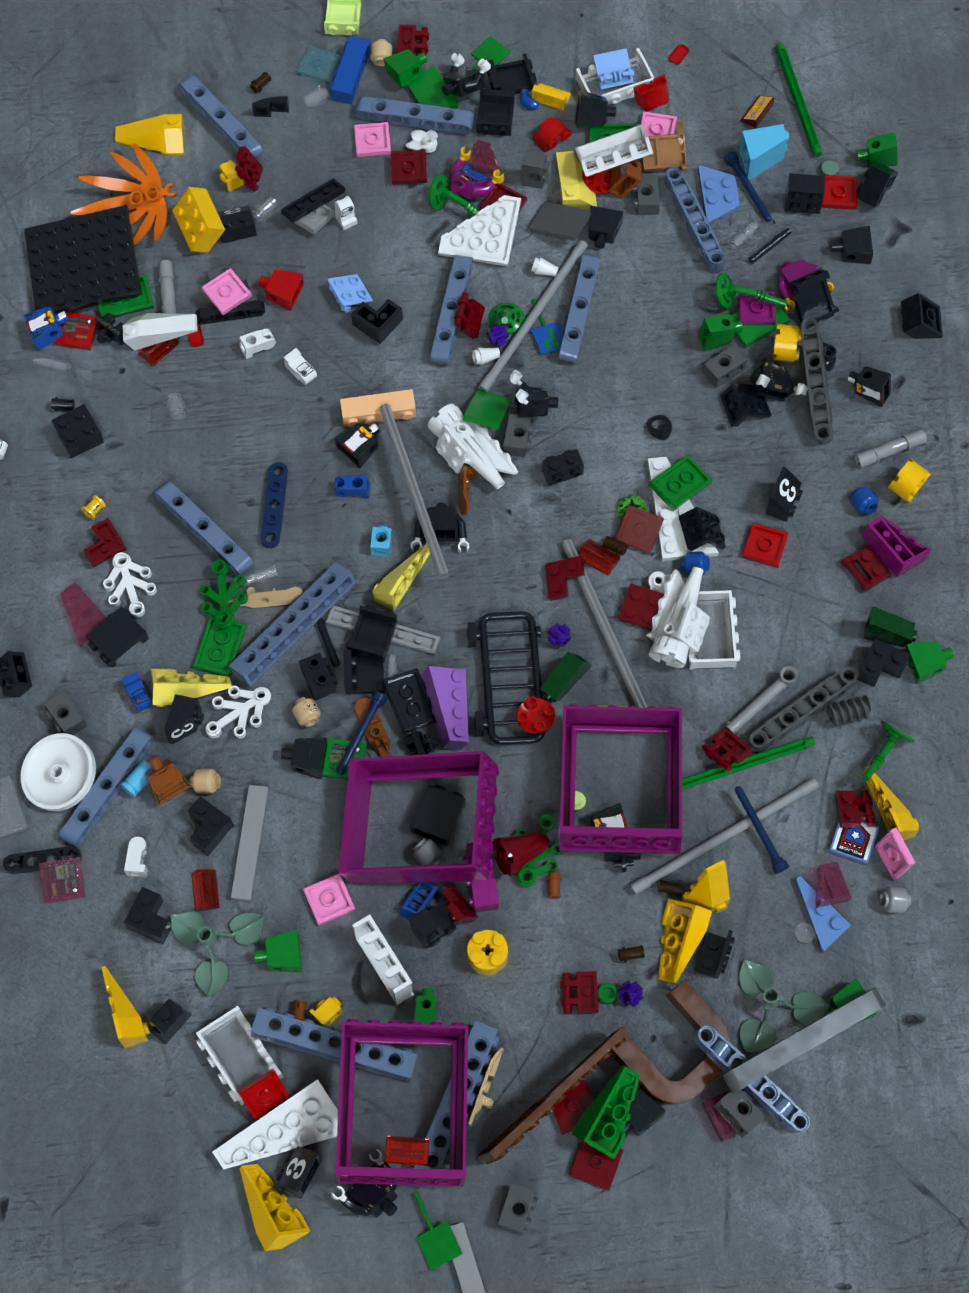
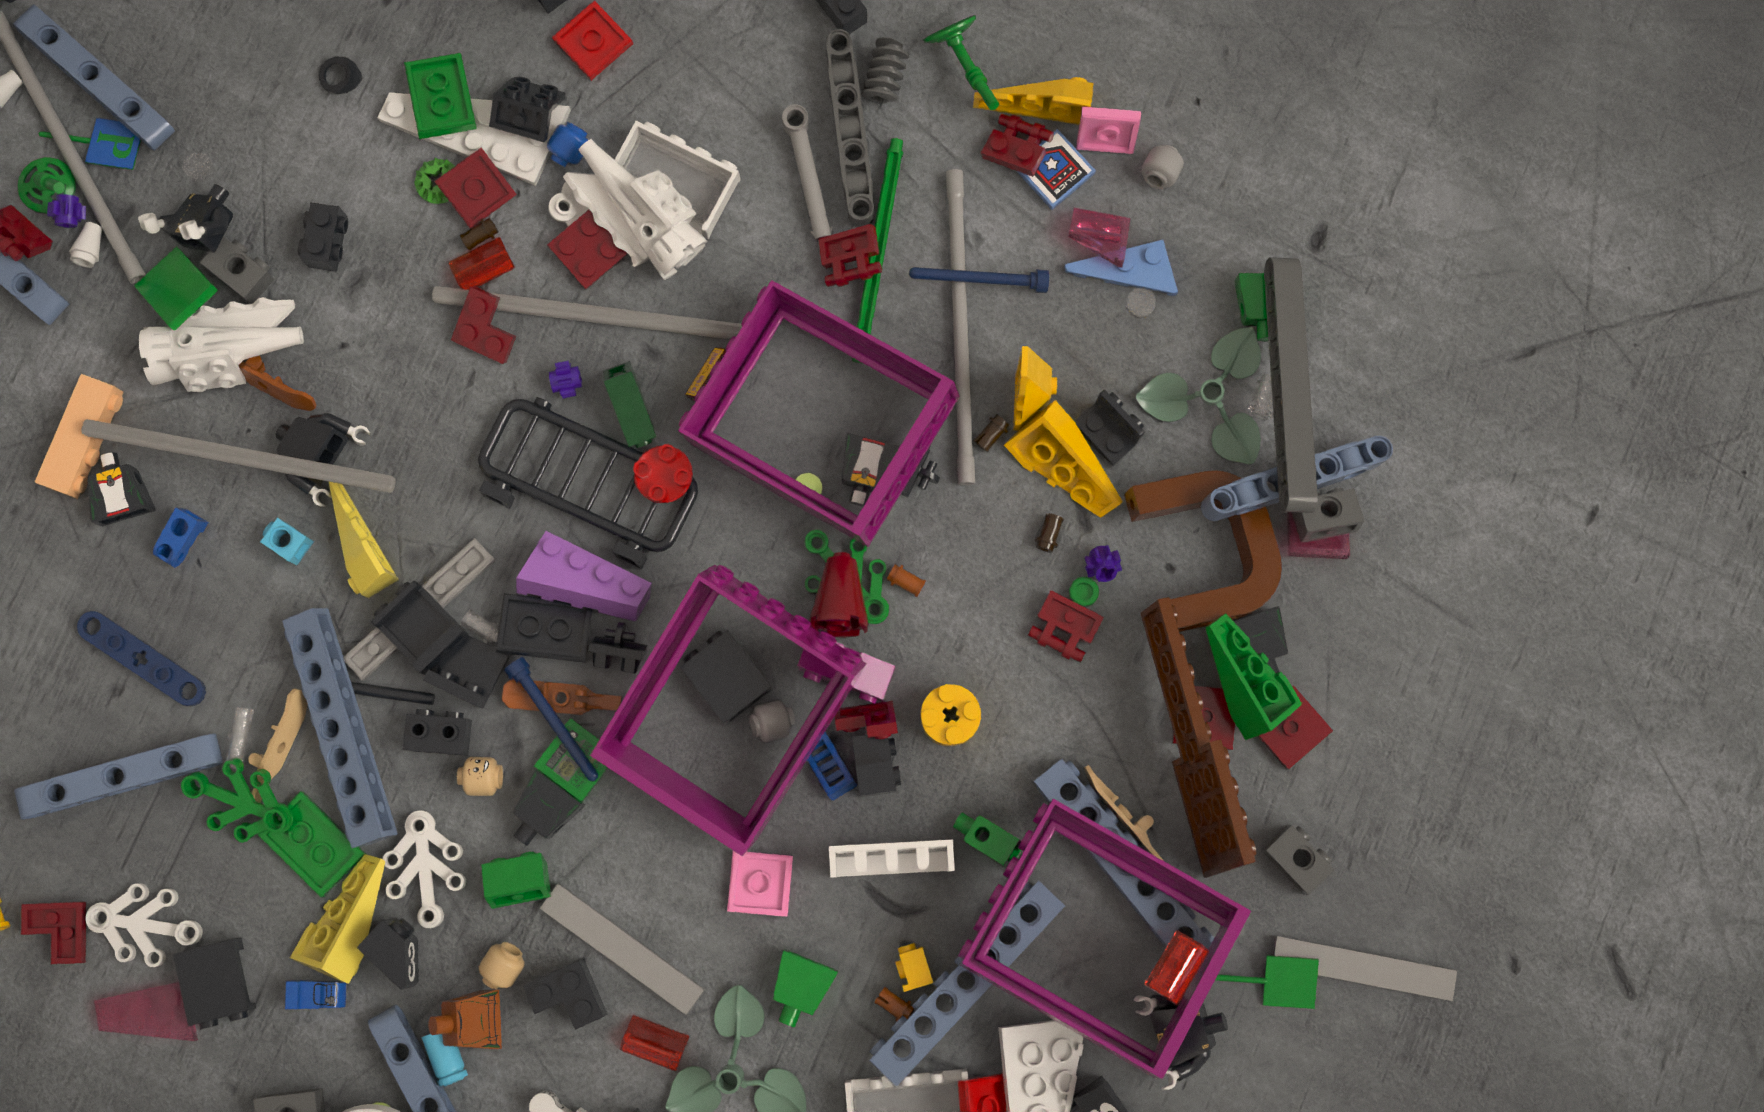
camera: 60 degrees left, 15 degrees up
(258, 762) = (515, 880): none -> green brick

